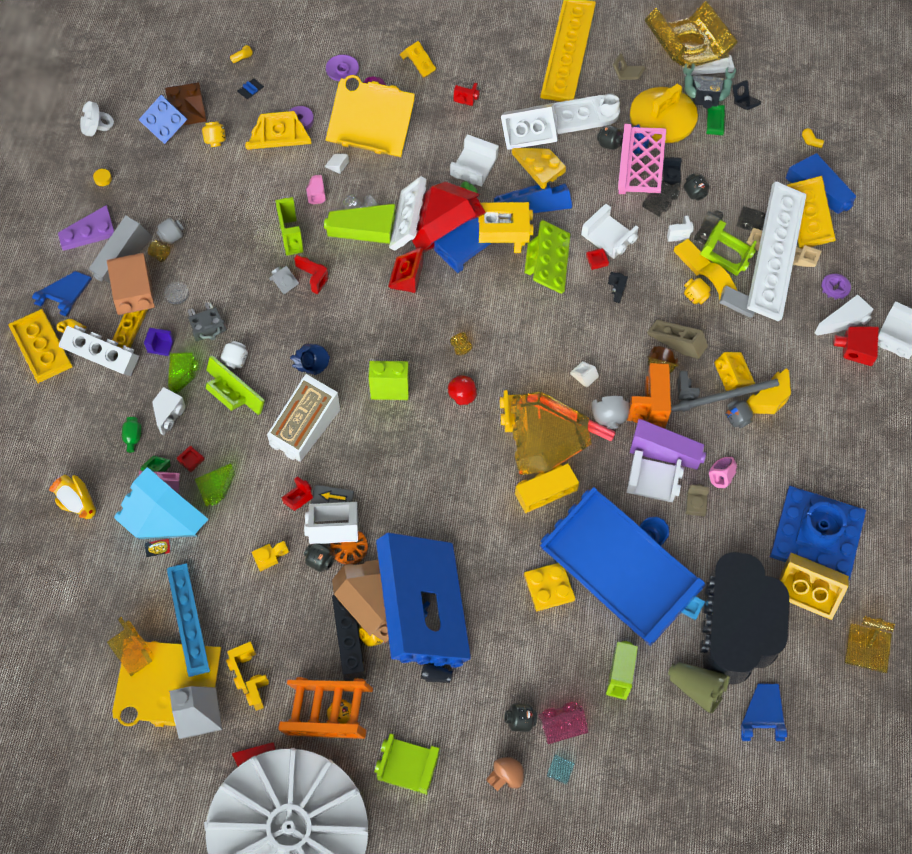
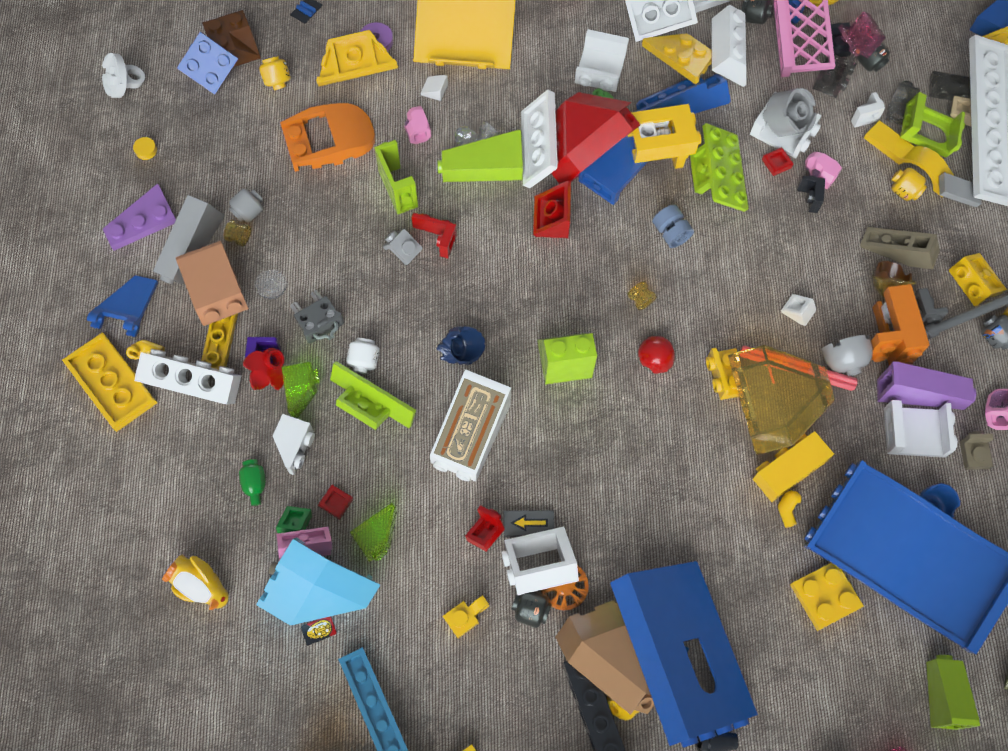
camera: 10 degrees left, 5 degrees up
(155, 353) = (263, 371): none -> red plate
(262, 183) = (349, 128): none -> orange slope
(498, 295) = (671, 224): none -> sand blue wheel
(534, 517) = (786, 507): none -> yellow arm
(579, 163) = (729, 44): none -> white slope
(612, 221) = (790, 112): none -> light grey brick
(632, 268) = (823, 166): none -> bright pink rock
(687, 171) = (863, 35): none -> clear pink bracket

